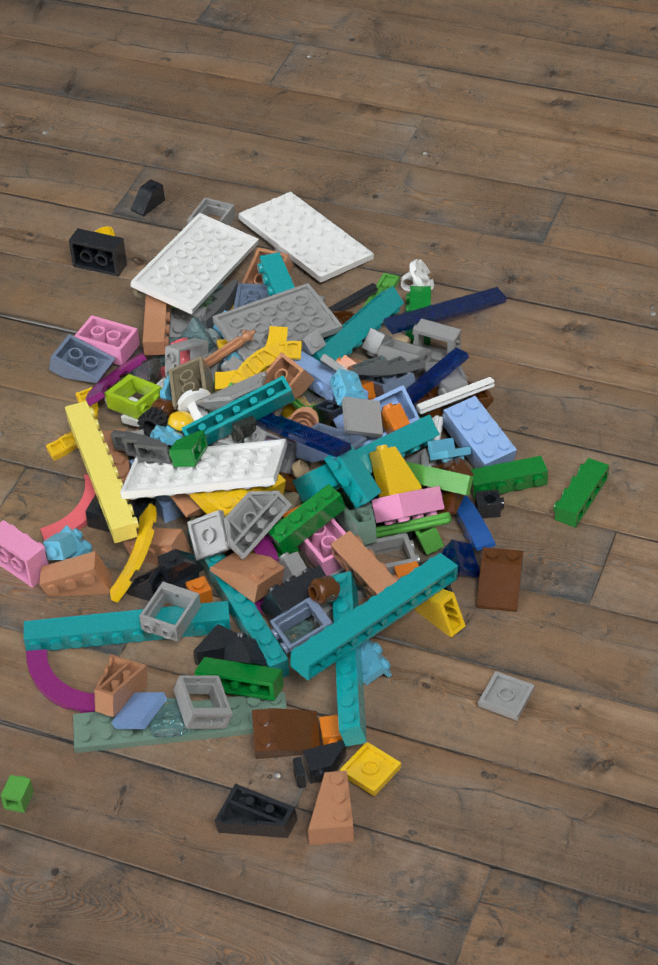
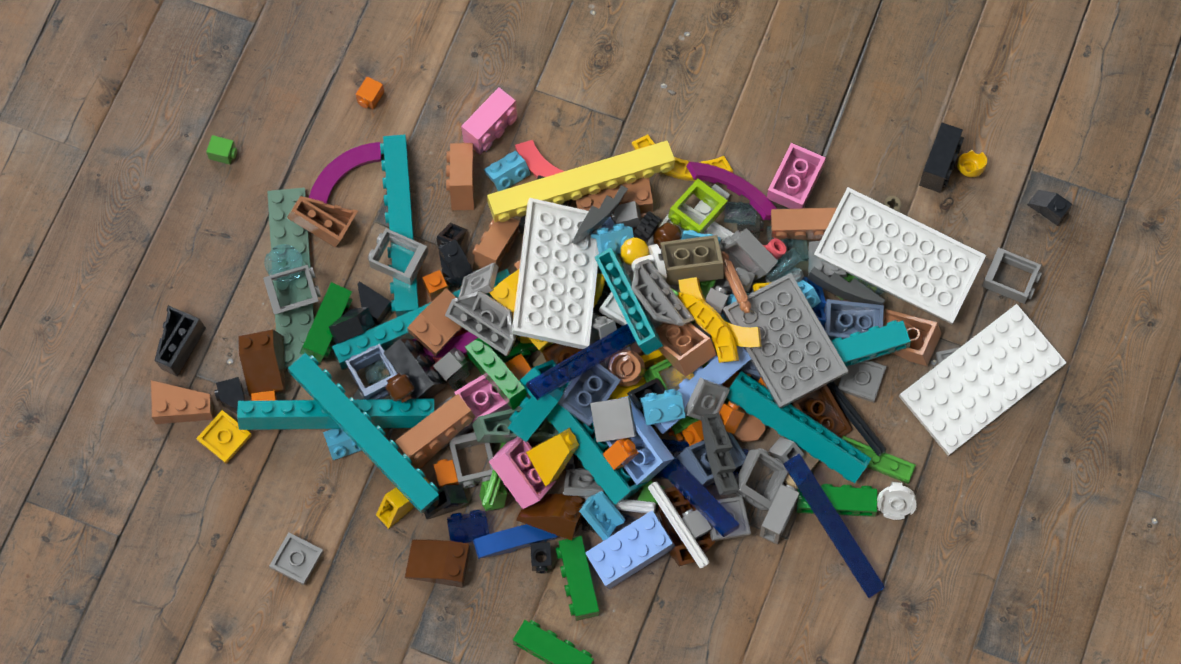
camera: 90 degrees right, 25 degrees up
(60, 546) = (488, 155): medium azure brick -> none
(80, 361) = (763, 155): sand blue slope -> none
(138, 553) = (478, 226): yellow tile -> none
(139, 710) = (289, 238): medium blue tile -> none
(188, 450) = (579, 256): green slope -> none
(243, 429) = (613, 308): clear smoke bracket -> none
(299, 772) = (222, 375): black tile -> none
(311, 342) = (747, 373): light grey brick -> none
(445, 479) = (551, 499): bright green tile -> none

